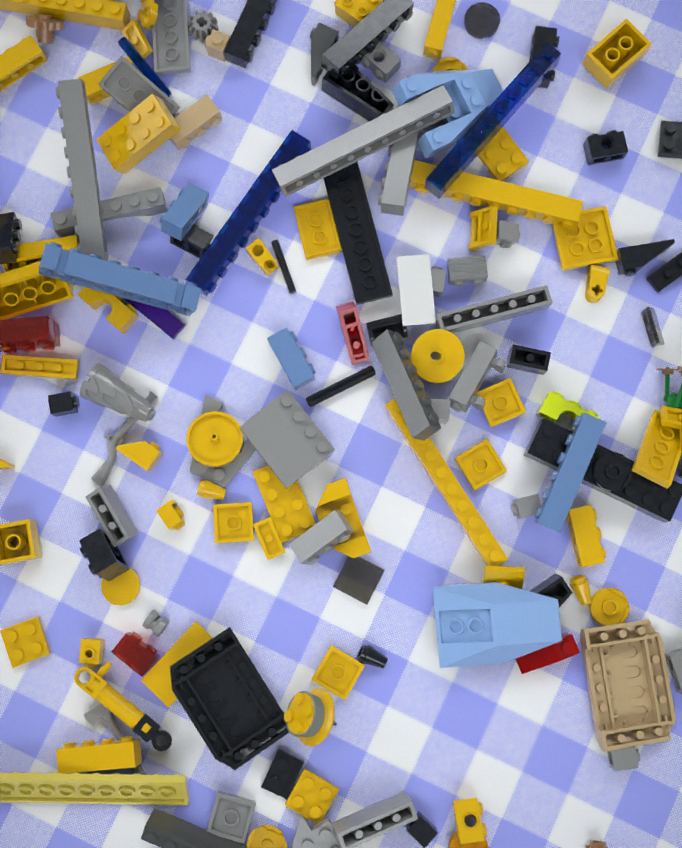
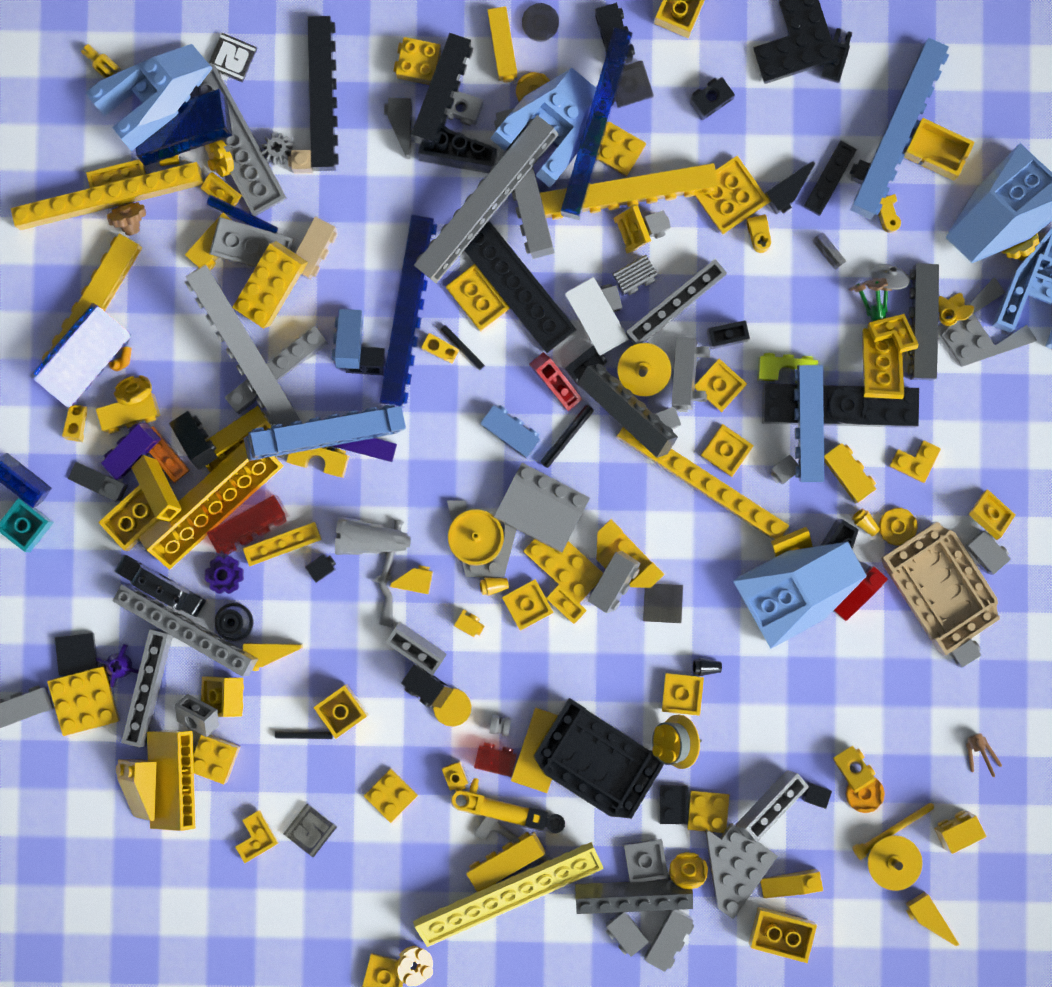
camera: 20 degrees left, 5 degrees up
(539, 107) = (633, 85): none -> clear smoke tile
(649, 558) = (918, 466): none -> yellow plate

